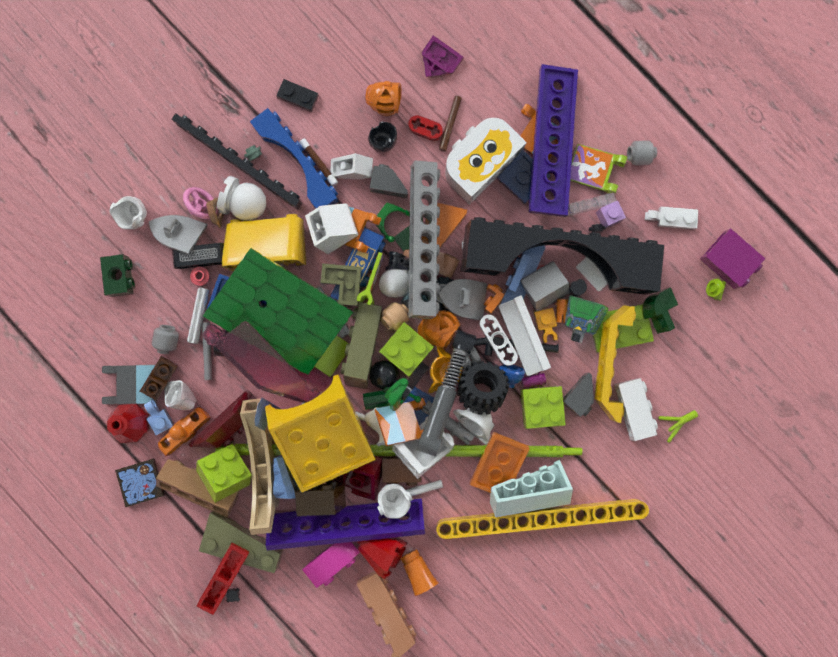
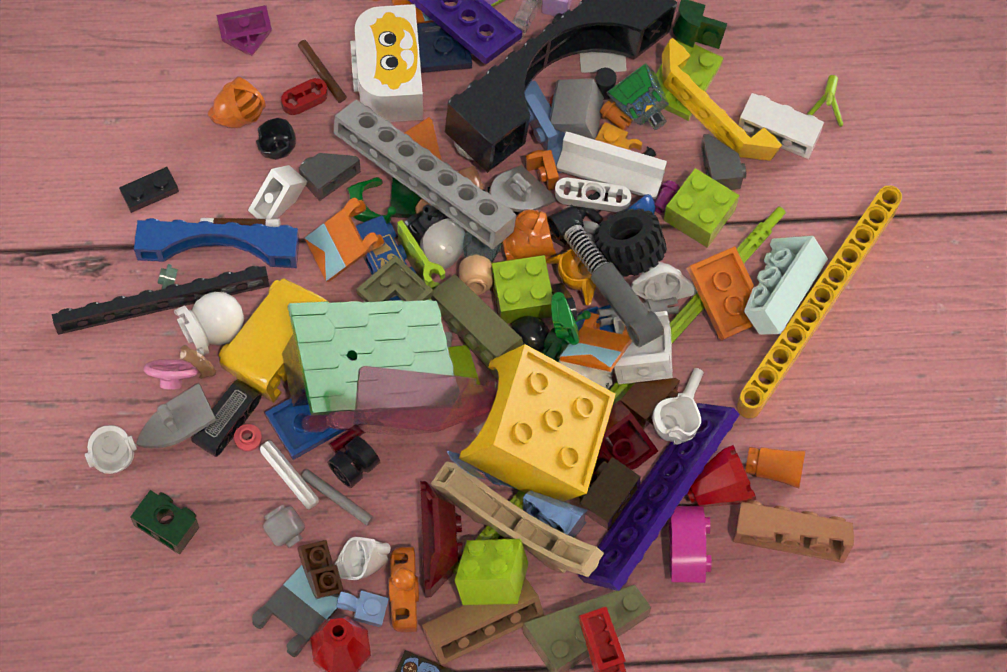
camera: 50 degrees left, 20 degrees down
(331, 226) = (324, 255): white slope -> none

